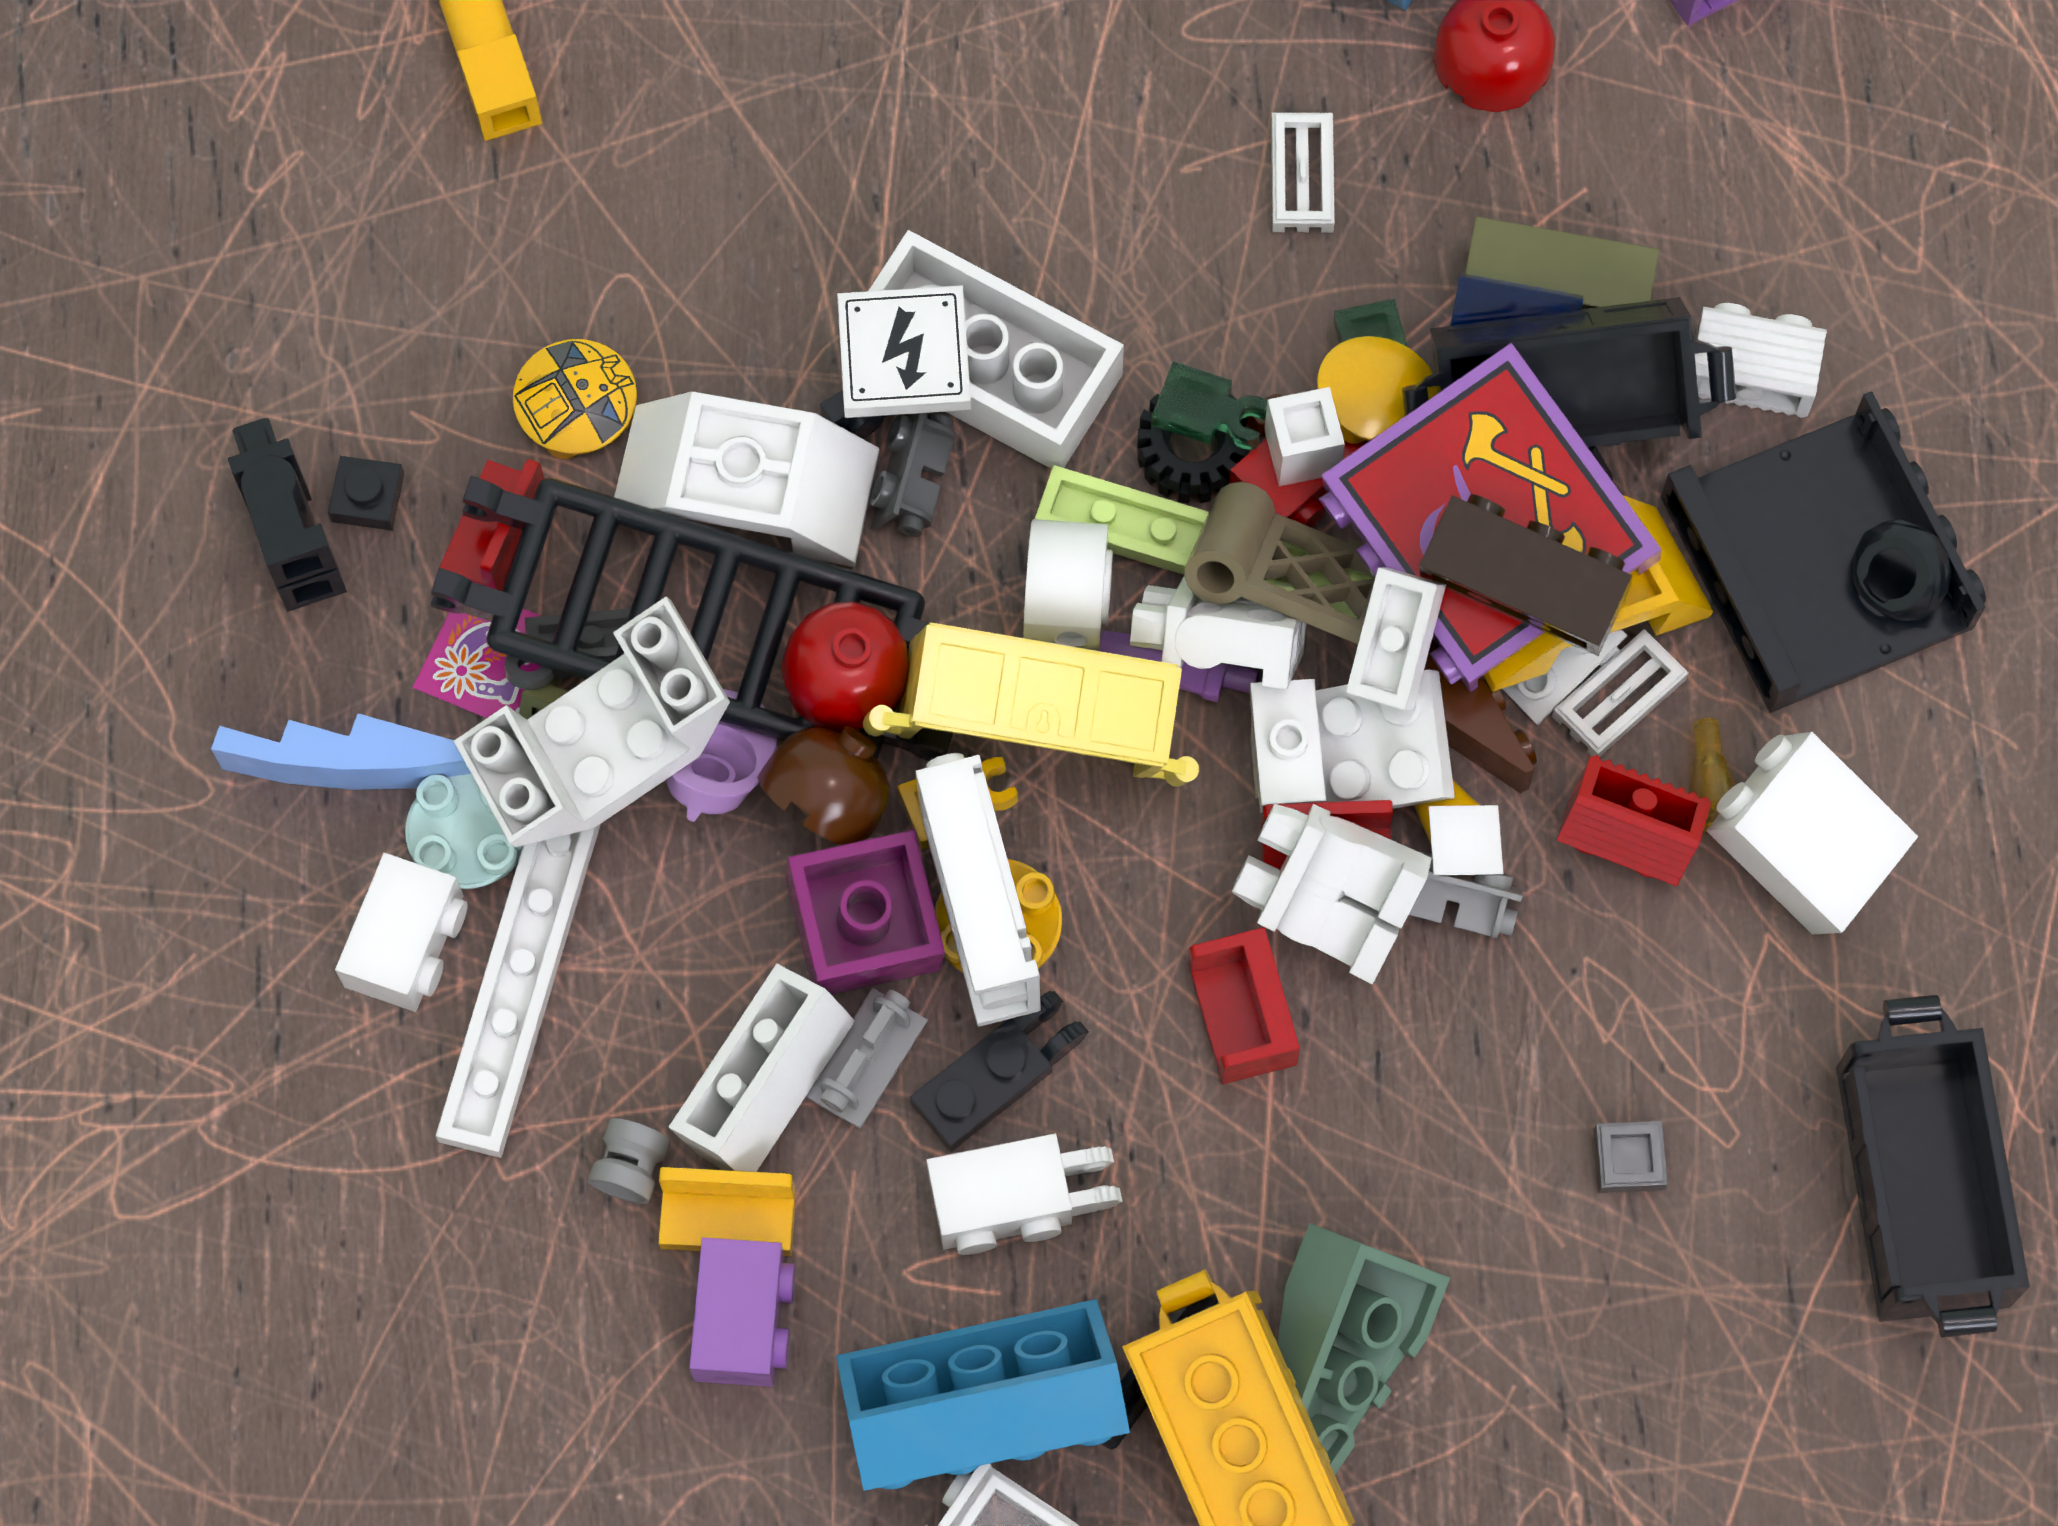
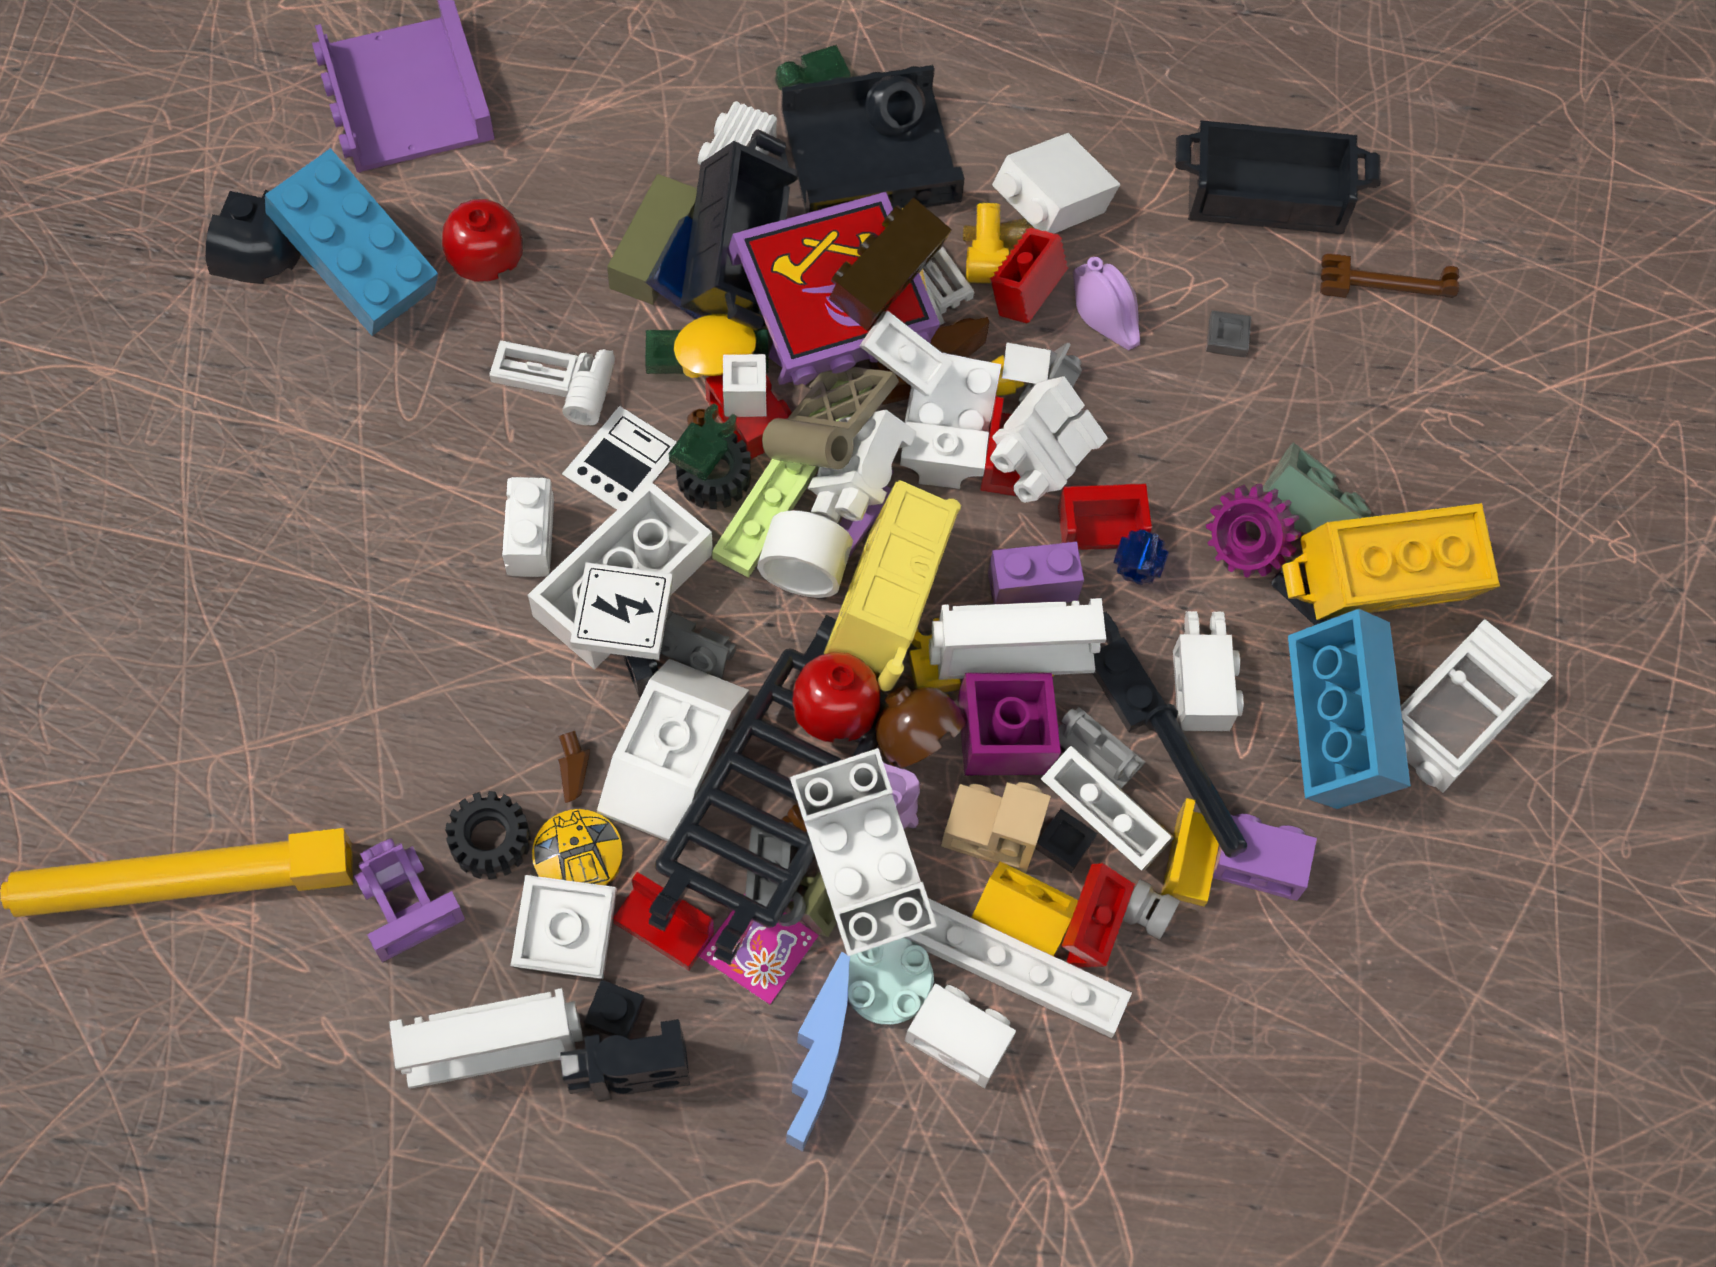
camera: 85 degrees left, 5 degrees down
(284, 334) = (485, 1038): none -> white door
(429, 209) = (386, 868): none -> medium lavender tile
(465, 403) = (564, 927): none -> white tile
(570, 247) = (482, 810): none -> black tyre
(591, 1078) = (1097, 917): none -> red panel
(602, 993) = (1025, 908): none -> yellow panel
(697, 362) = (572, 766): none -> reddish brown bar
(704, 1026) = (1066, 840): none -> black plate
(706, 926) = (995, 825): none -> tan brick
(828, 1191) = (1196, 779): none -> black axle
(1034, 217) = (528, 527): none -> white brick
(1117, 918) = (1036, 574): none -> medium lavender brick
(1184, 1067) = (1141, 557): none -> clear blue gear
(1188, 319) = (620, 458): none -> white sticker
(1259, 1221) = (1271, 517): none -> magenta gear
(1286, 246) = (589, 387): none -> white hinge
(1633, 962) = (1107, 302): none -> lavender hat
(1673, 753) = (987, 249): none -> yellow pin
(1812, 1493) = (1338, 277): none -> reddish brown hinge
(1950, 458) = (816, 67): none -> clear green plate

